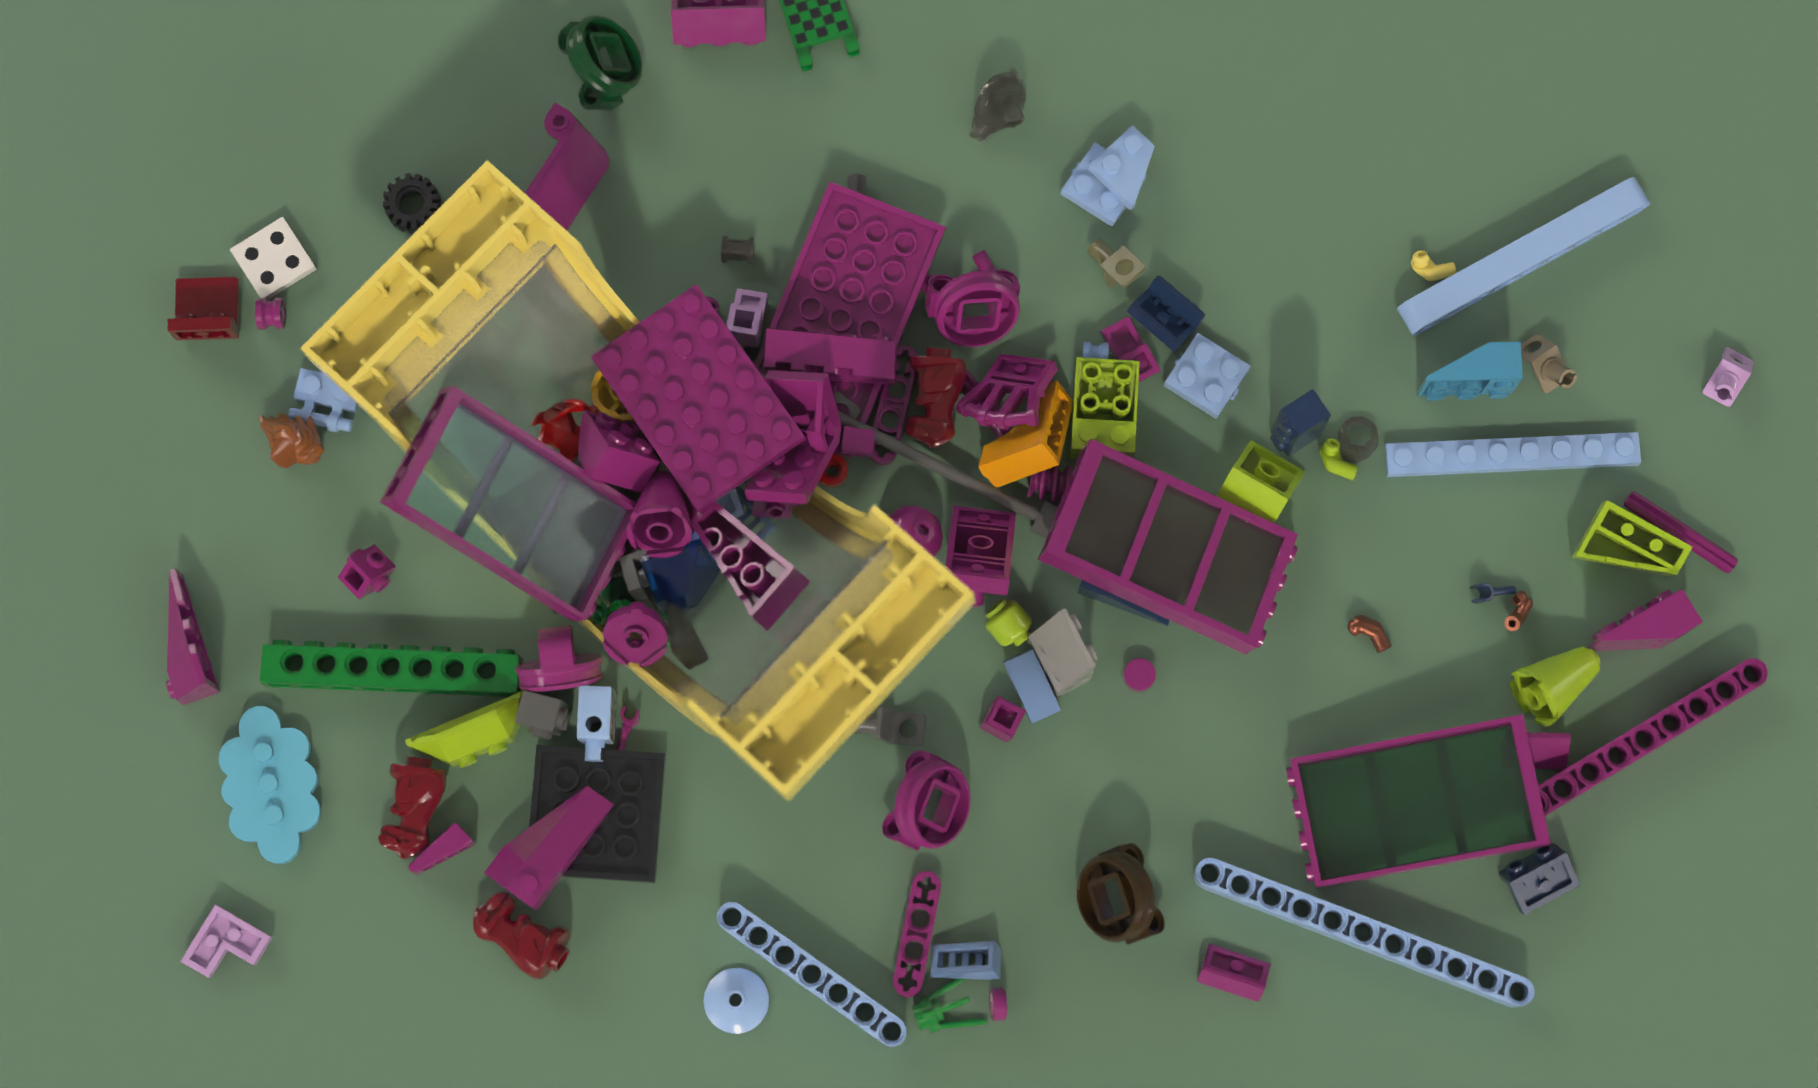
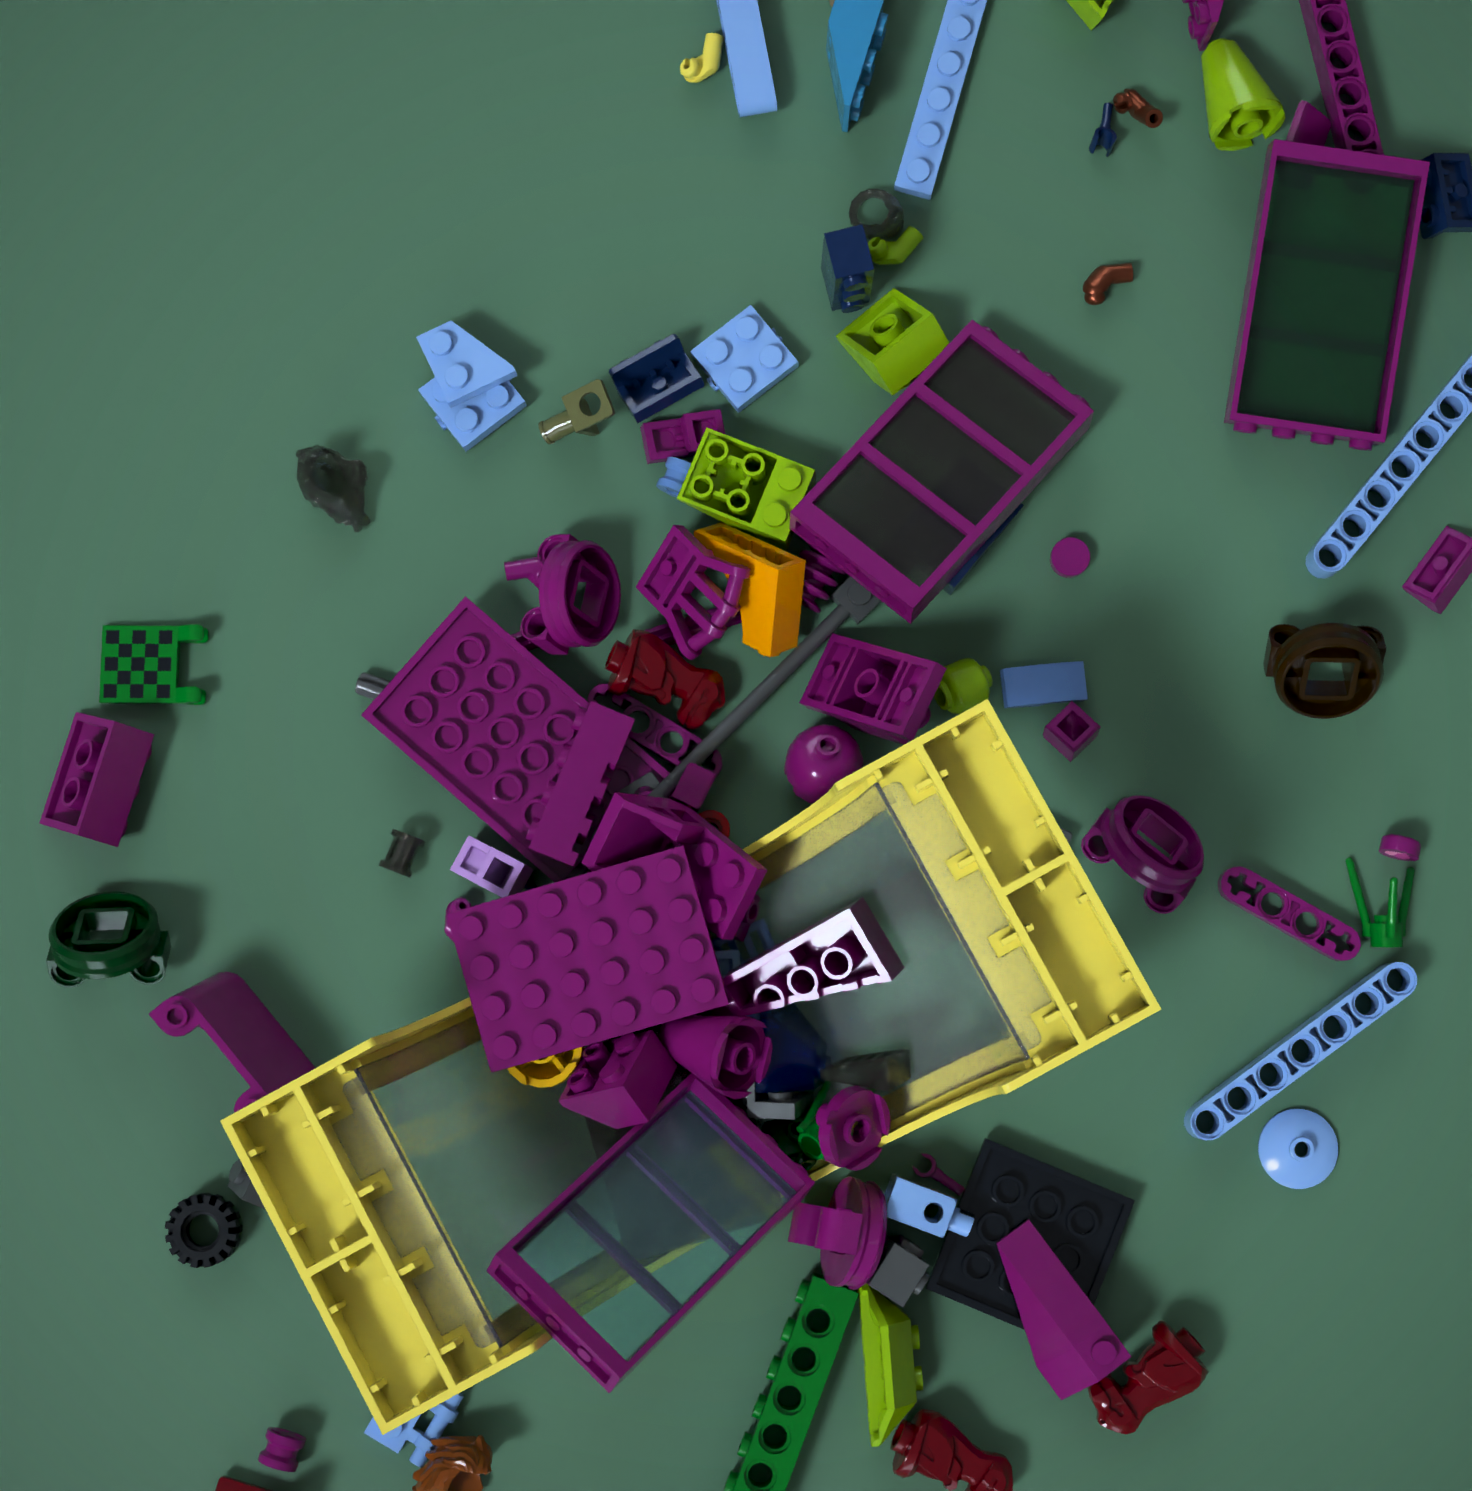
camera: 70 degrees left, 5 degrees up
(273, 259) = (212, 1425): white tile -> none
(366, 571) = (648, 1429): magenta brick -> none
(446, 846) = (1011, 1430): magenta slope -> none
(560, 427) = (562, 1136): red helmet -> none
(979, 971) = (1357, 857): medium blue slope -> none
(1063, 653) = (1026, 632): light grey slope -> none

